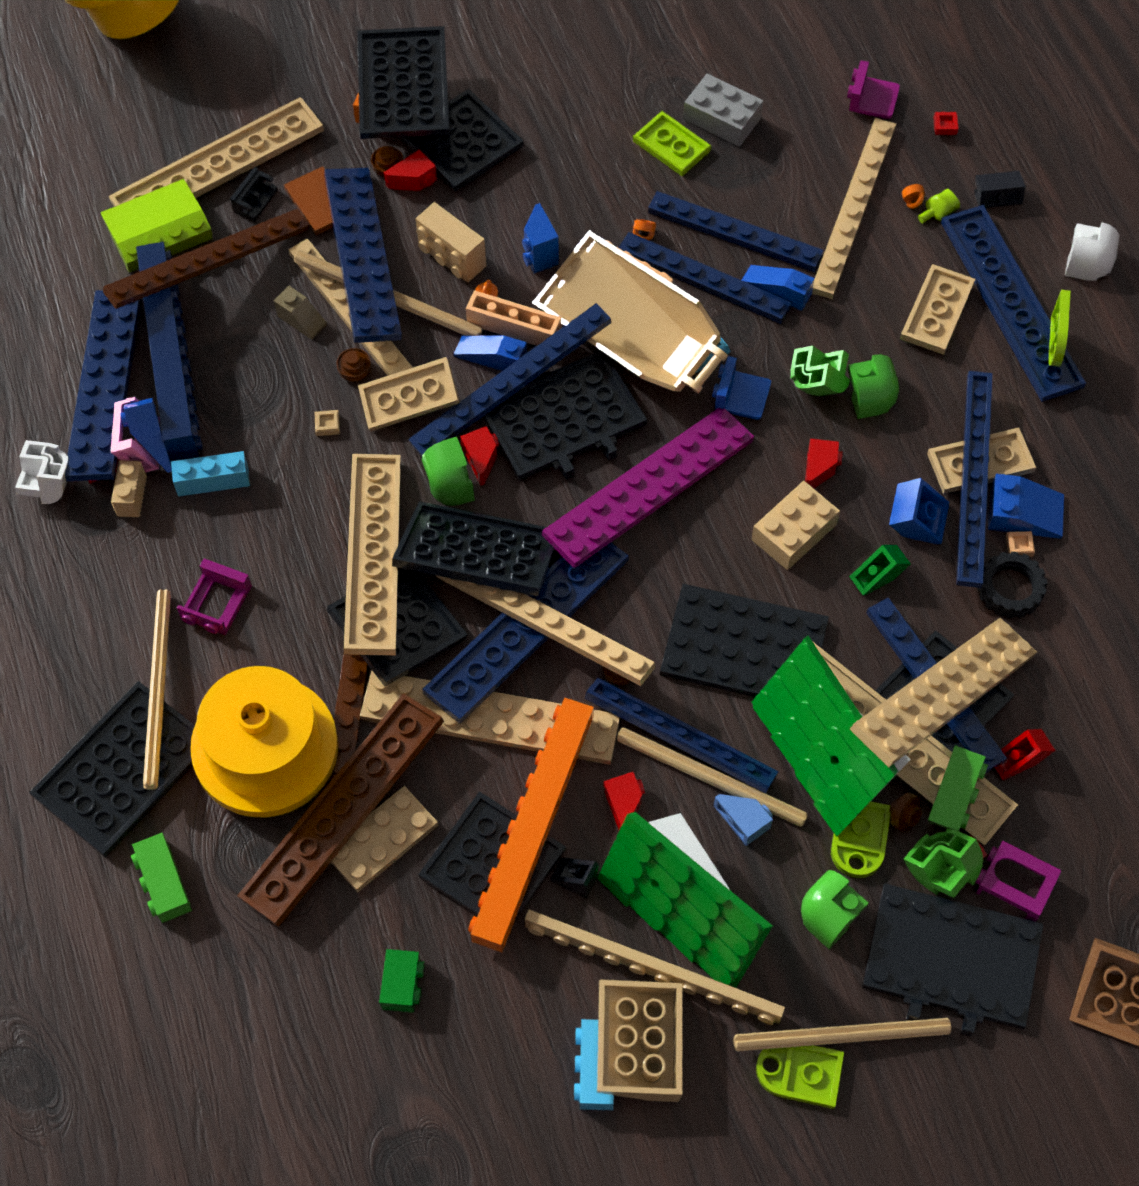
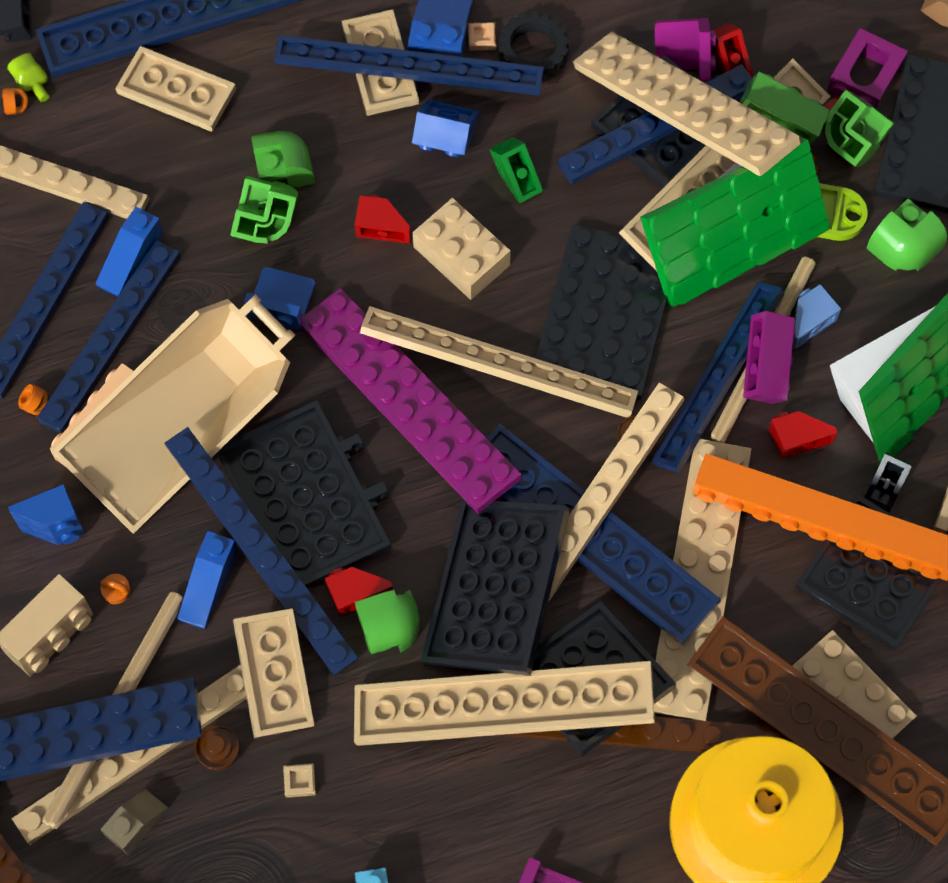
camera: 90 degrees left, 5 degrees up
(511, 318) = (167, 549): light nougat brick -> none
(684, 553) = (499, 362): none -> tan plate
(695, 773) = (769, 357): none -> magenta brick
(1023, 711) = (687, 44): none -> magenta bracket

